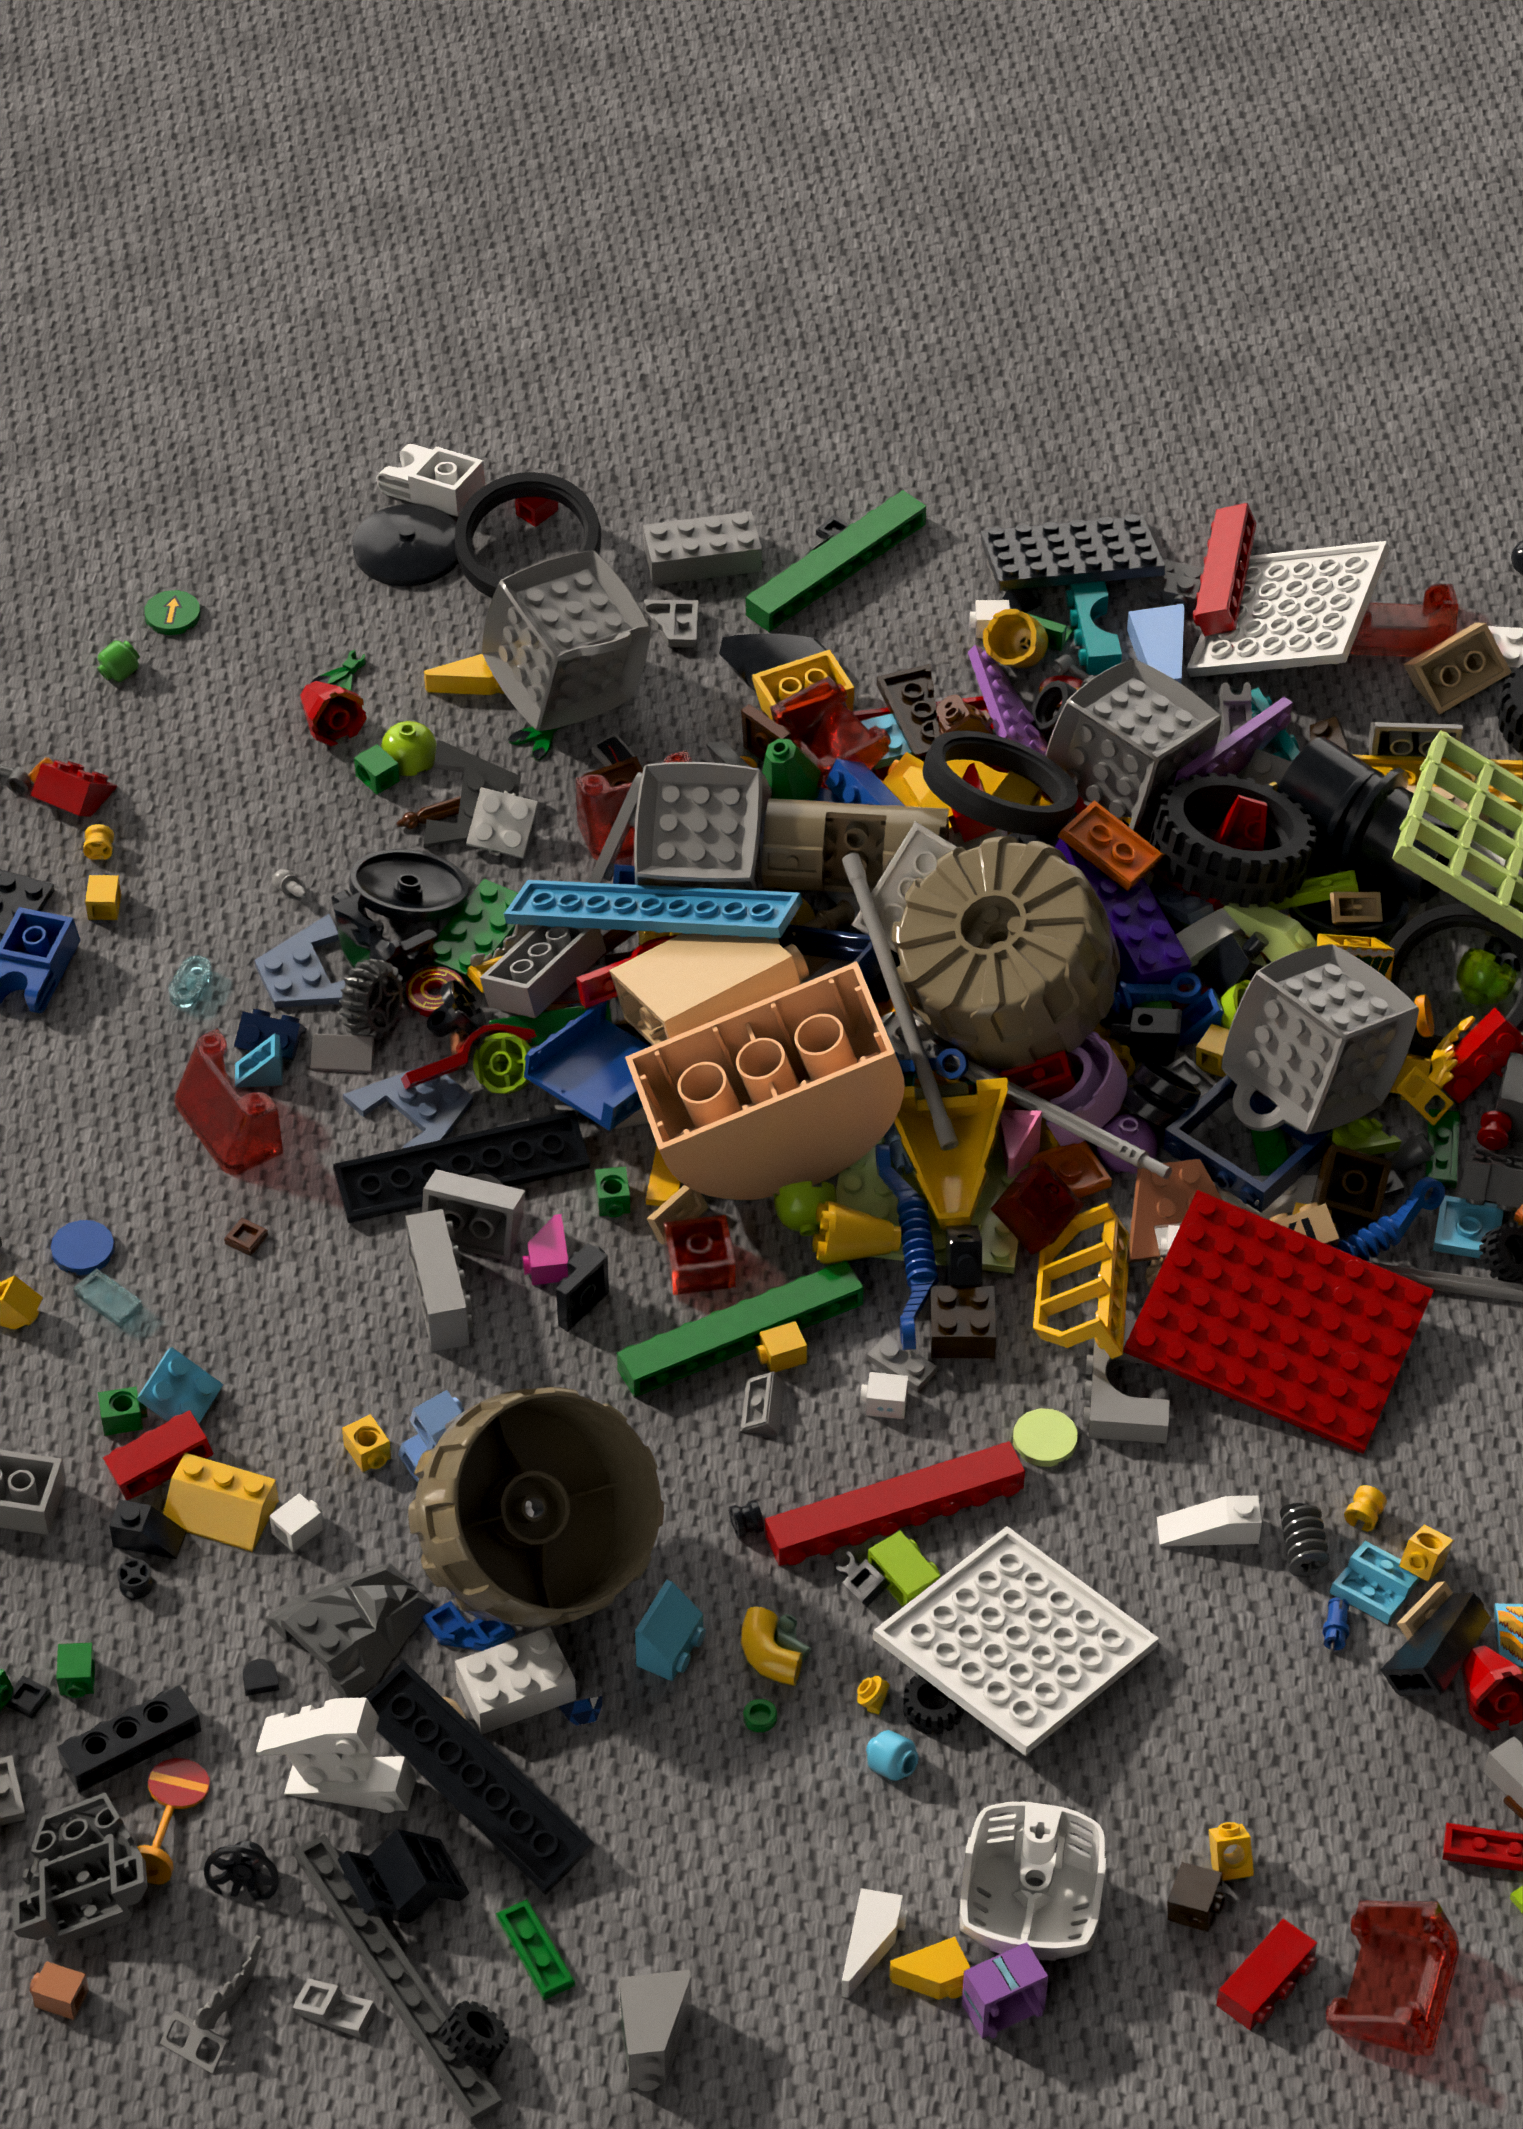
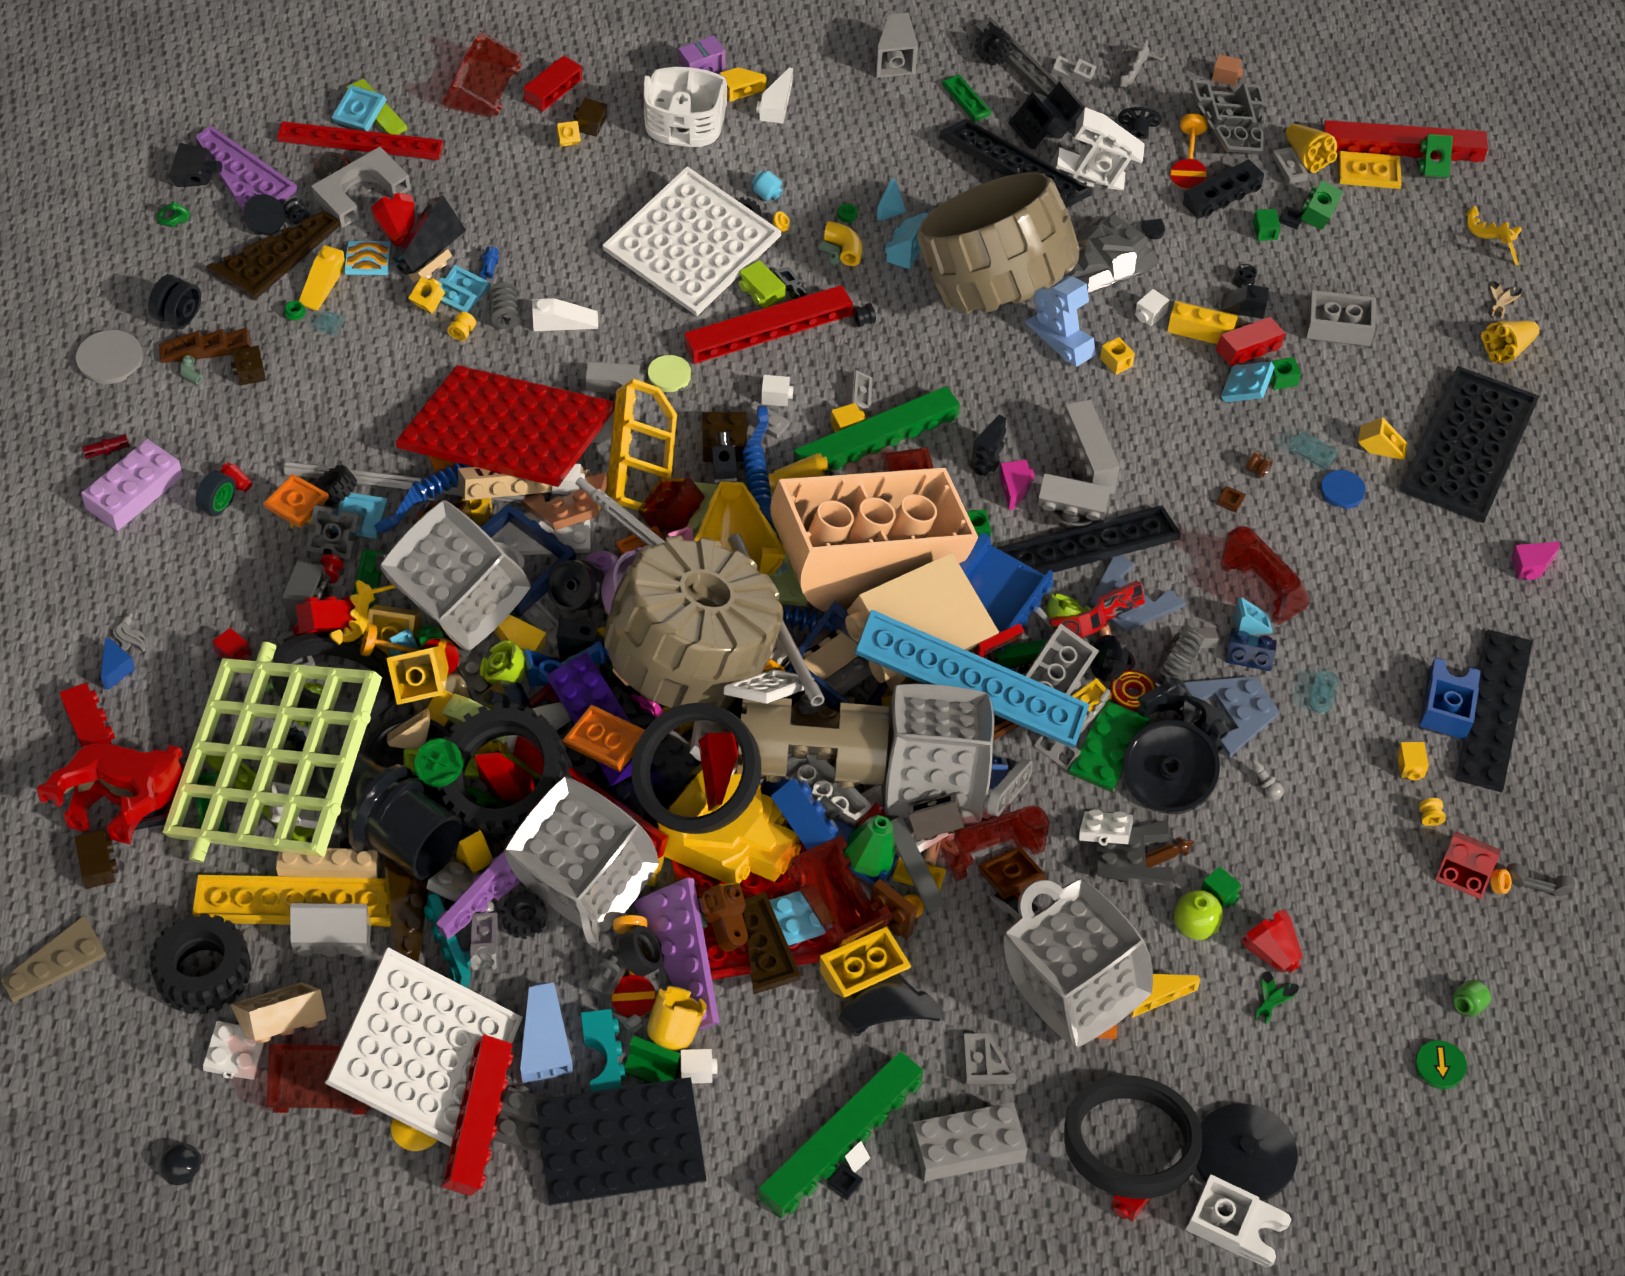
camera: 175 degrees right, 5 degrees up
(194, 1274) = (1259, 464): none -> reddish brown wheel
(687, 1724) = (891, 202): none -> medium azure slope
(1311, 828) = (438, 762): none -> green tile

